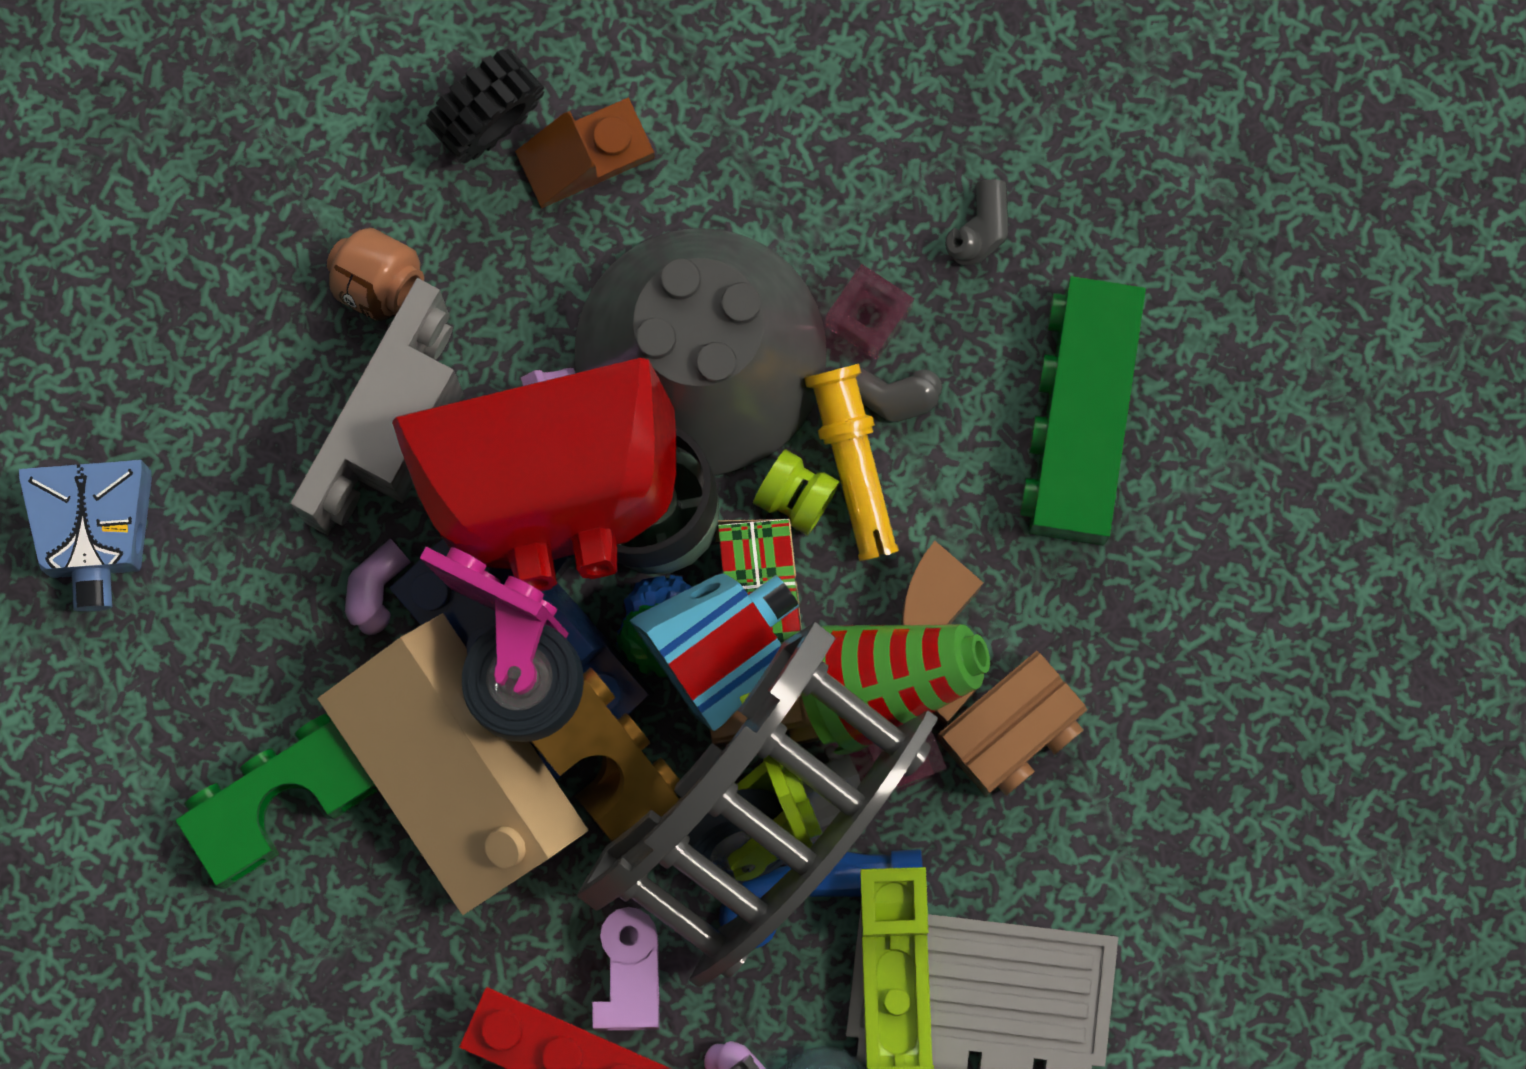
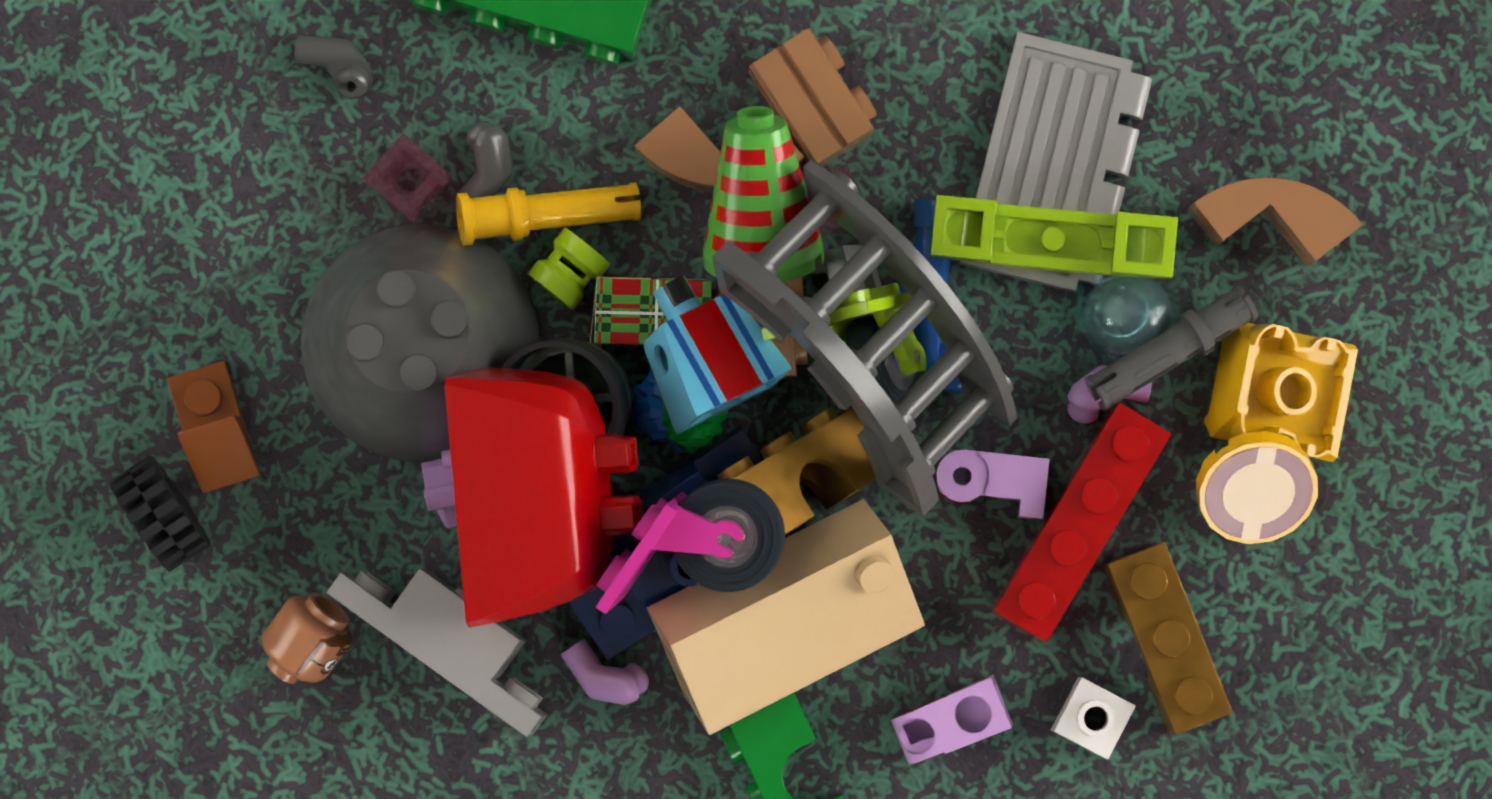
camera: 80 degrees left, 5 degrees up
(367, 963) = (952, 721): none -> lavender leg

